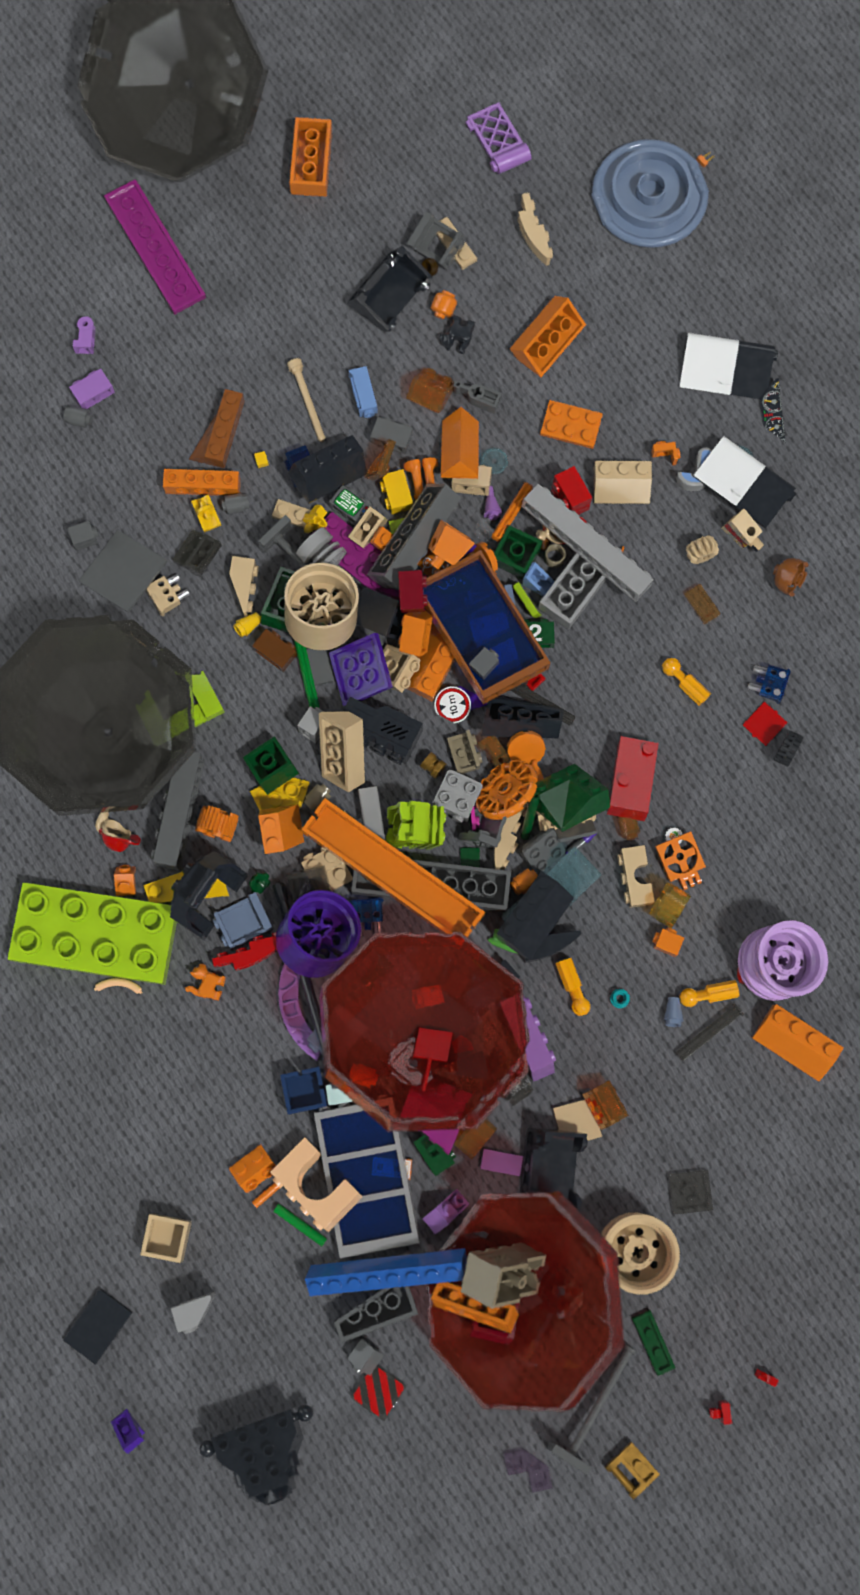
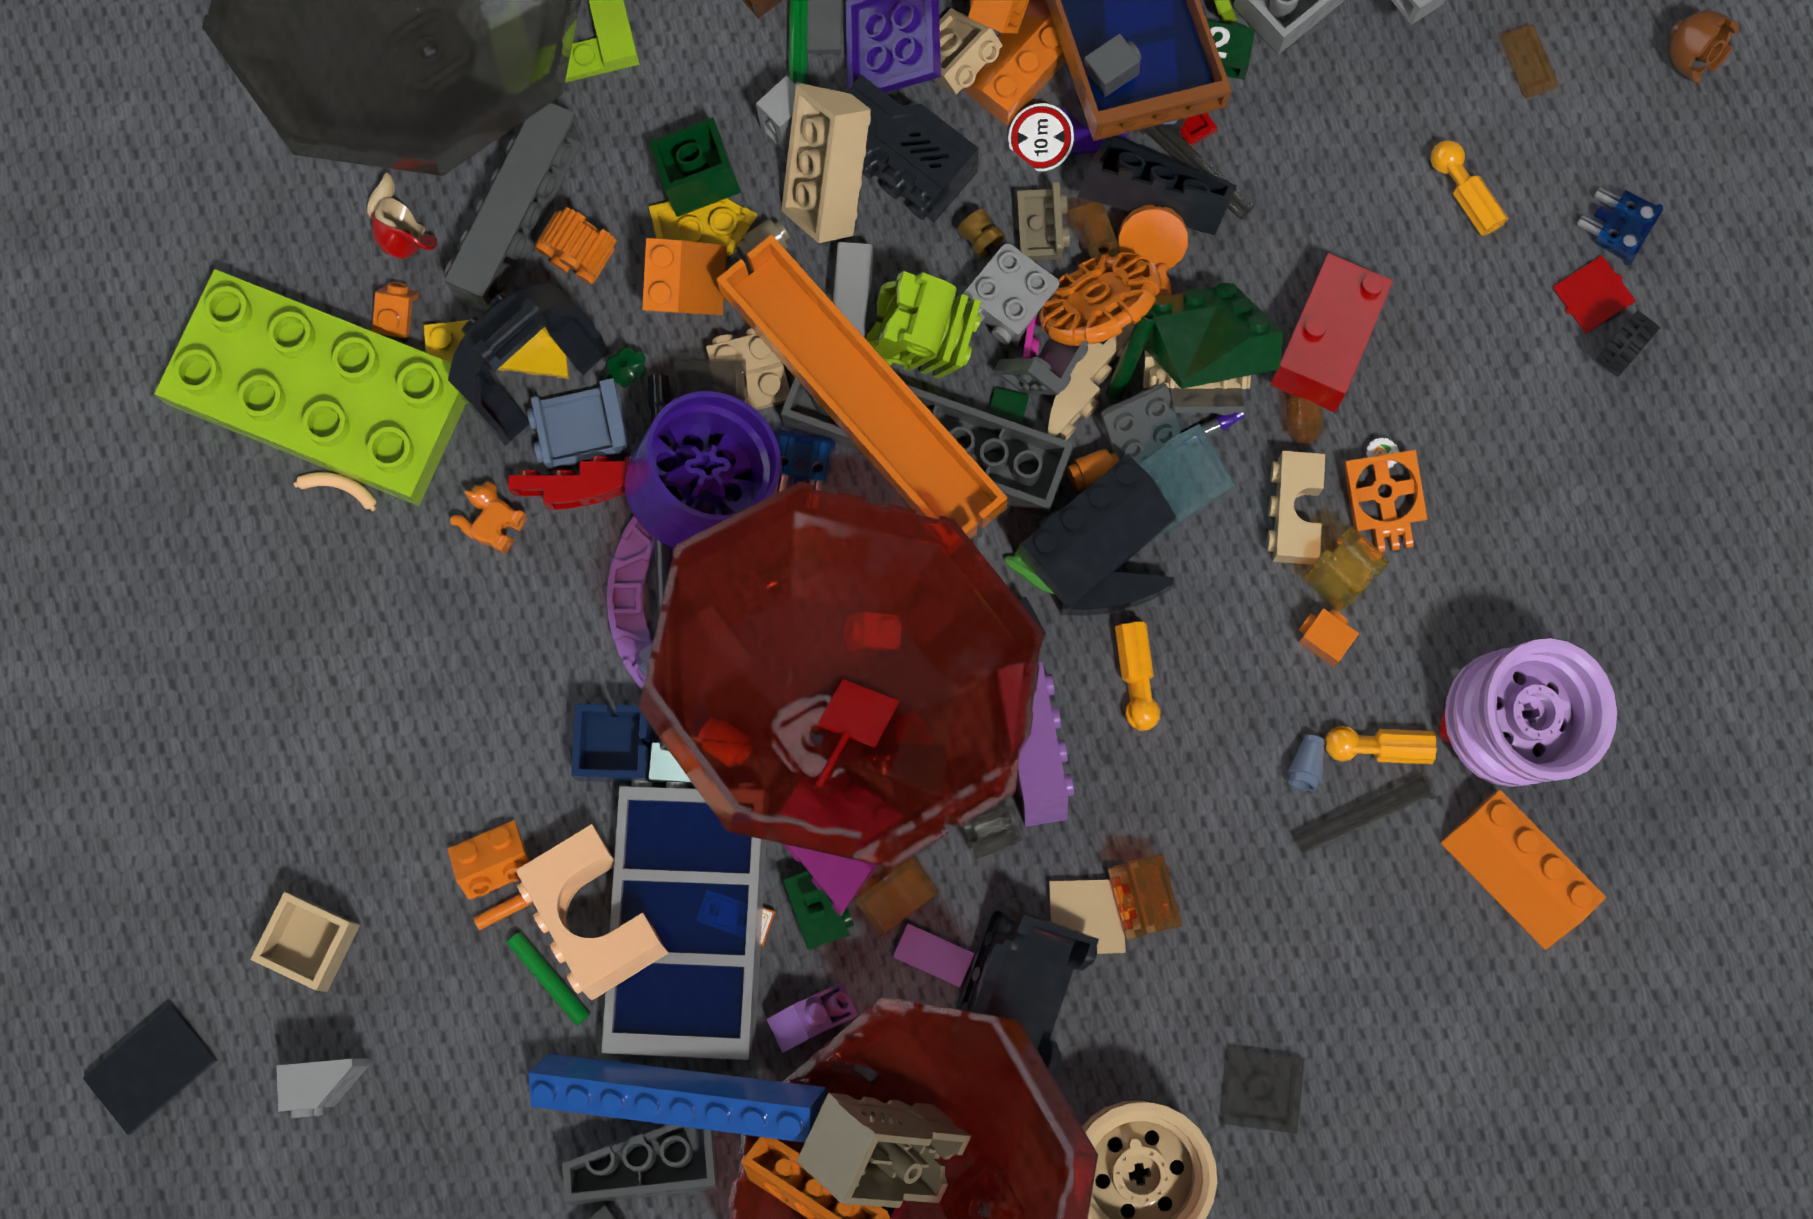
camera: 20 degrees right, 0 degrees up
(626, 998) = (1222, 706): teal plate -> none

